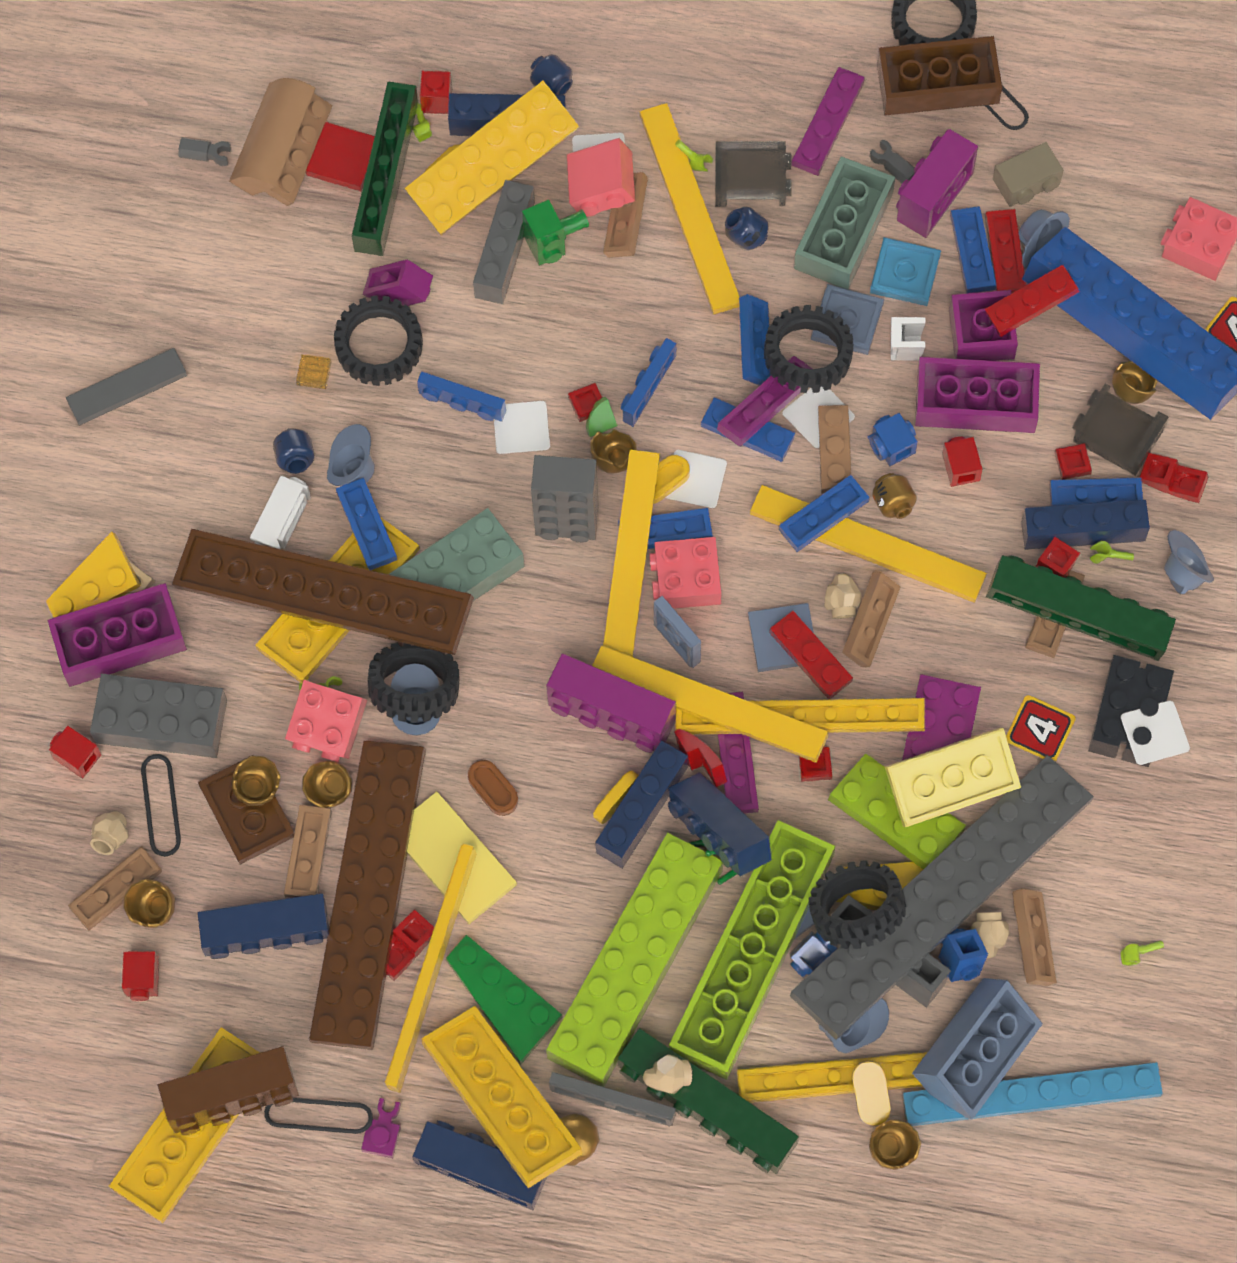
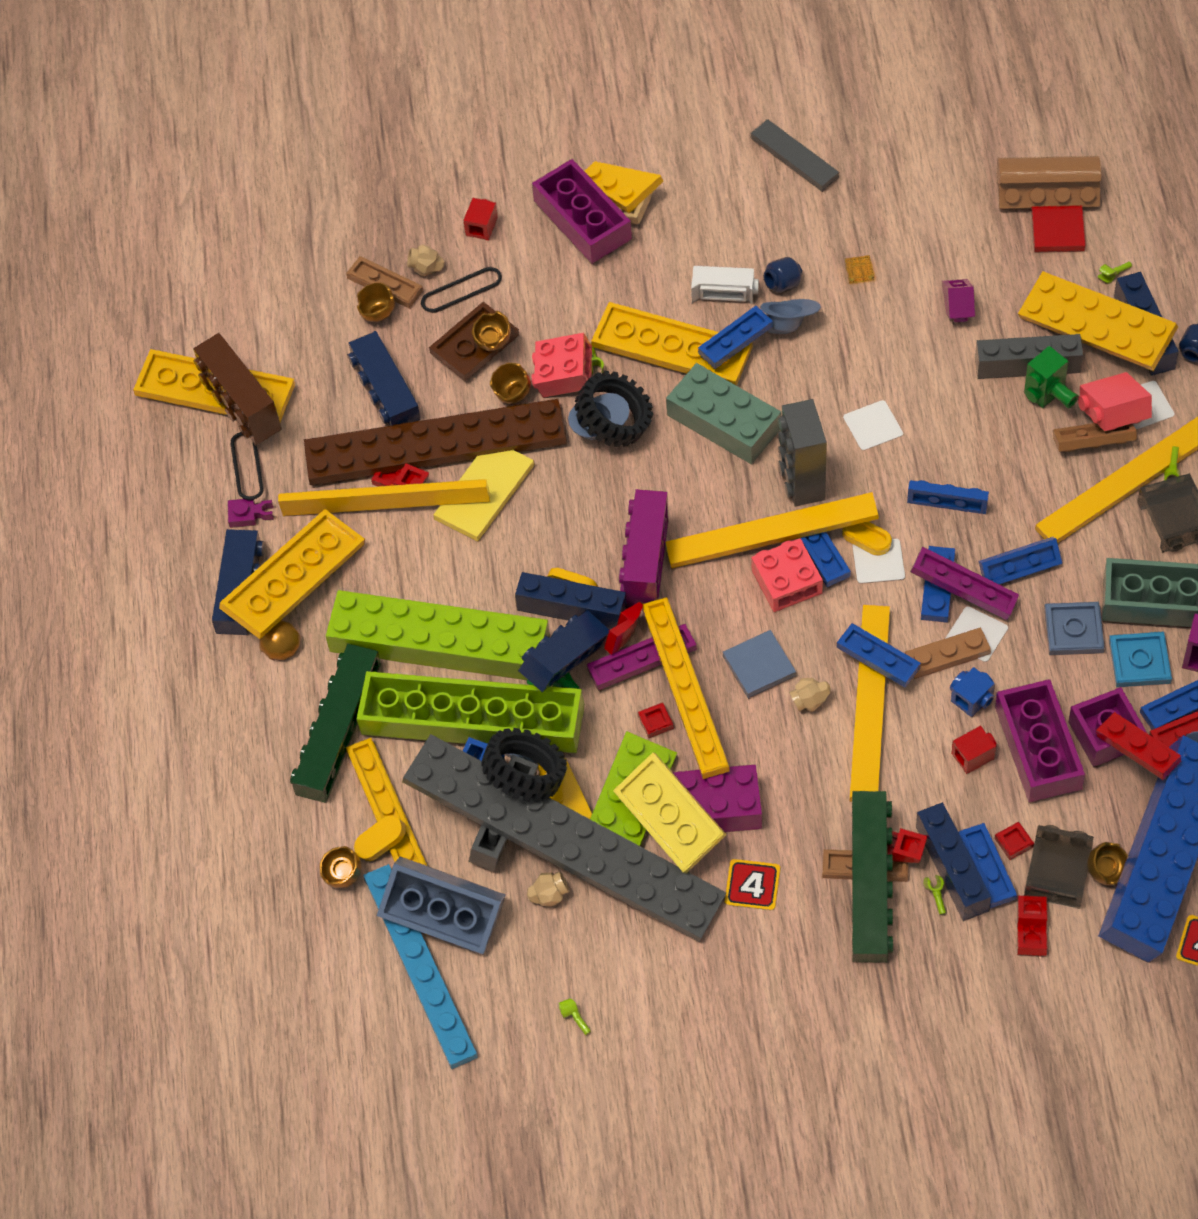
camera: 75 degrees right, 10 degrees down
(140, 974) = (319, 316): red brick -> none
(158, 715) = (528, 260): dark grey brick -> none
(203, 150) = (1018, 135): dark grey bar -> none
(307, 851) = (453, 391): medium nougat plate -> none
(323, 591) = (664, 326): reddish brown plate -> none
(374, 309) = (899, 277): black tyre -> none
(385, 169) = (1055, 253): dark green brick -> none
(435, 91) = (1146, 263): red brick -> none
(461, 397) = (876, 371): blue plate -> none
(492, 787) = (552, 499): dark orange tile -> none
(510, 1004) = (381, 557): green wing -> none
(584, 400) = (913, 462): red tile -> none
(600, 418) = (901, 473): bright green tile -> none
(612, 450) = (874, 481): pearl gold hair -> none
(612, 1099) = (317, 654): dark grey tile -> none
(668, 1074) = (340, 676): tan rock -> none
(677, 632) = (726, 577): sand blue tile -> none
(717, 705) = (669, 617): yellow tile -> none
(746, 228) = (1120, 522): dark blue head -> none
(804, 377) = (1029, 571): black tyre -> none
(811, 655) = (747, 684): red plate -> none
(864, 1030) = (433, 816): sand blue piece -> none
(871, 619) = (798, 721): medium nougat plate -> none
(894, 496) = (919, 706): pearl gold head -> none
(906, 338) = (1063, 665): white window -> none
(963, 954) = (519, 870): blue brick -> none
(1034, 937) = (556, 925): medium nougat plate -> none
(1128, 690) = (790, 945): black piece -> none
(1166, 730) = (769, 961): white sticker -> none
(1186, 563) = (952, 952): sand blue piece -> none

